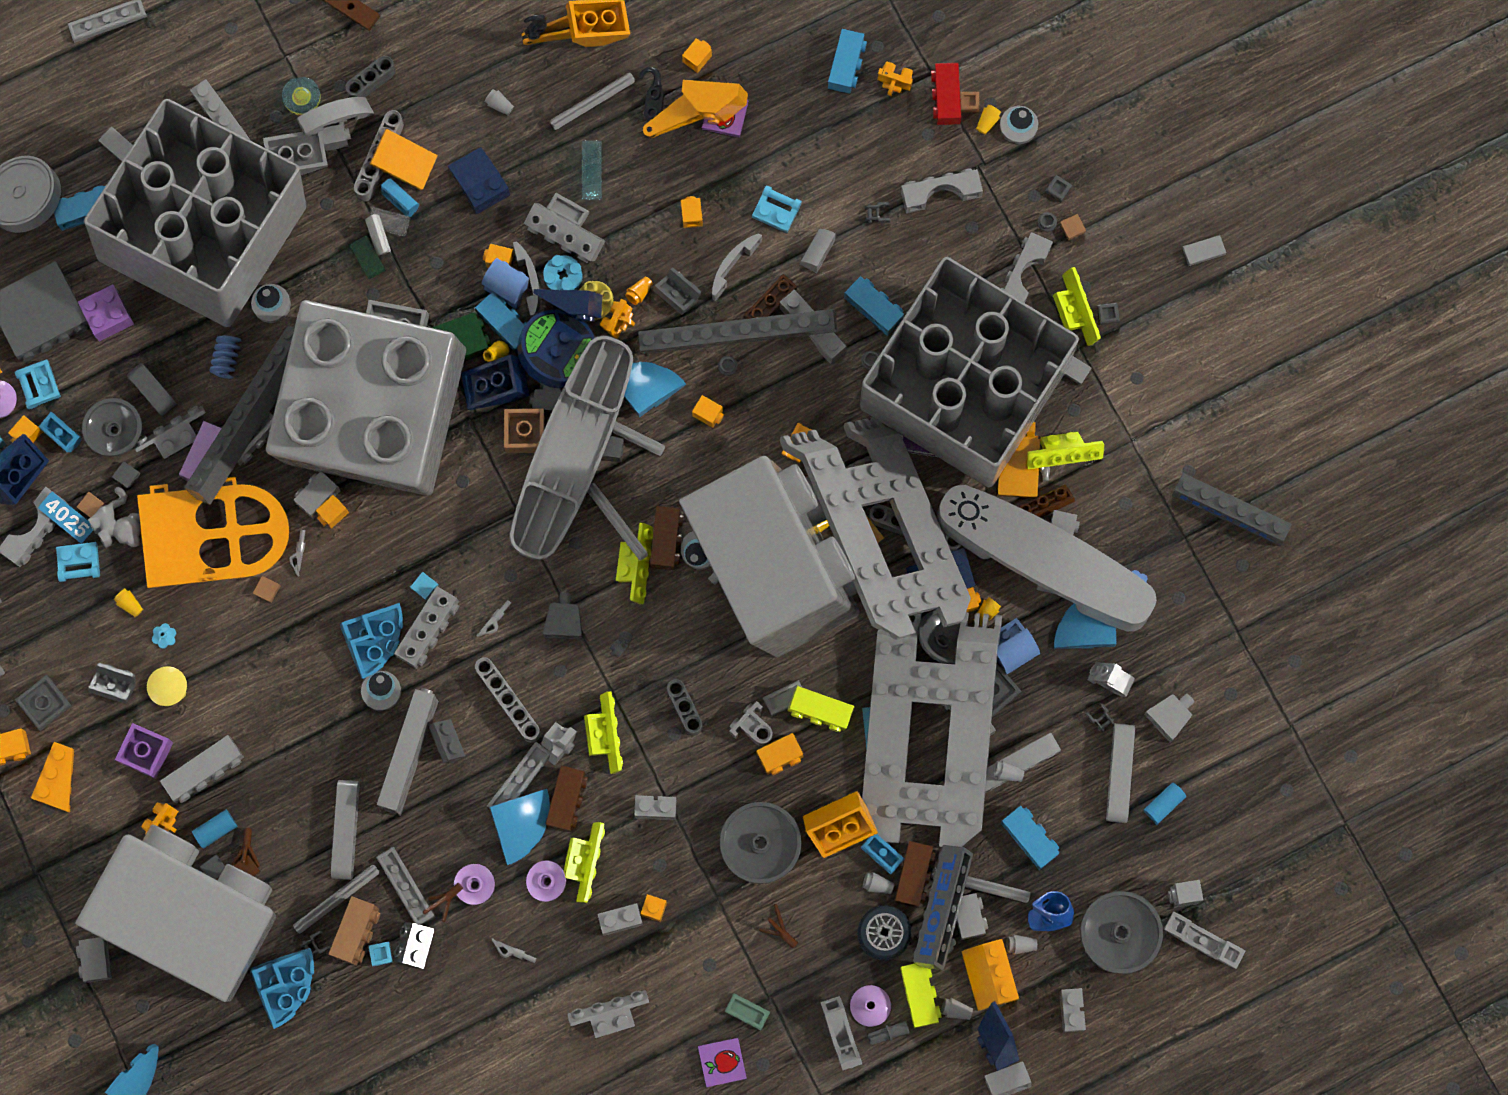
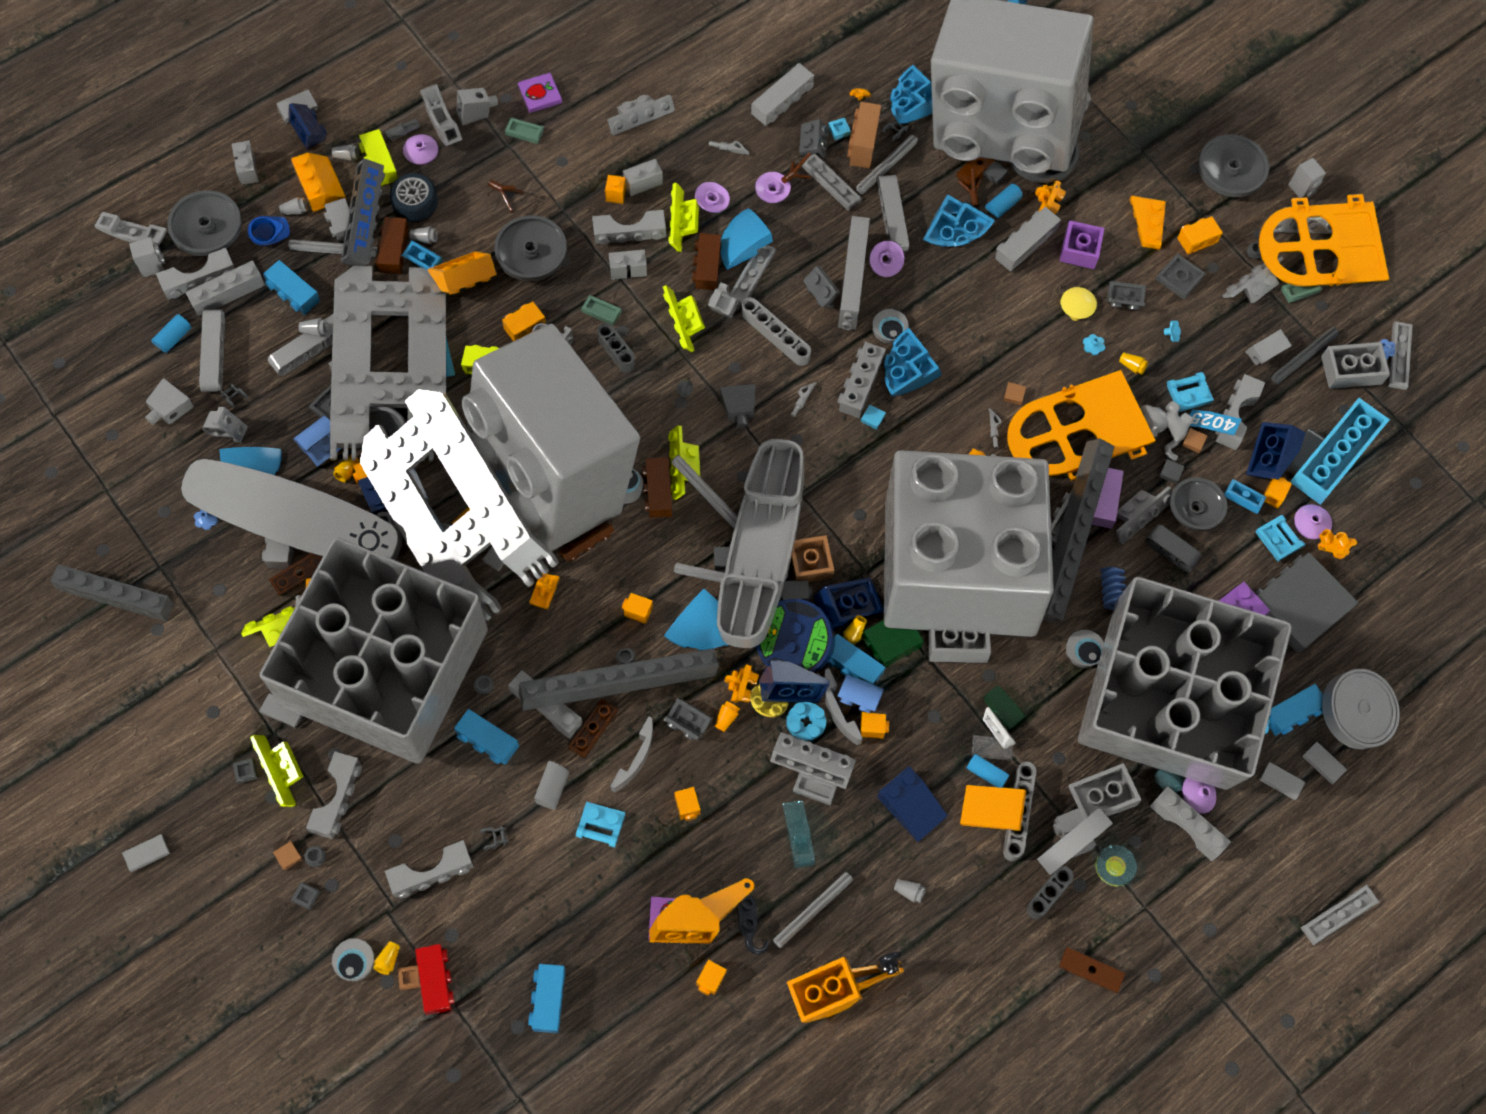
camera: 165 degrees right, 10 degrees down
(72, 156) = (1324, 763): none -> light grey tile
(73, 633) = (1174, 331): none -> medium azure plant
(277, 805) = (957, 224): none -> dark azure brick
(345, 1000) = (860, 93): none -> light orange plant
(366, 770) = (894, 262): none -> lavender dish
(436, 1008) = (782, 94): none -> light grey brick
(619, 854) = (649, 227): none -> light grey arch
(693, 760) = (601, 310): none -> sand green tile
(808, 1046) = (474, 105): none -> light grey torso
(894, 81) = (482, 987): light orange hips -> none
(1102, 846) = (225, 288): none -> light grey brick
(1158, 864) = (177, 283): none -> light grey arch

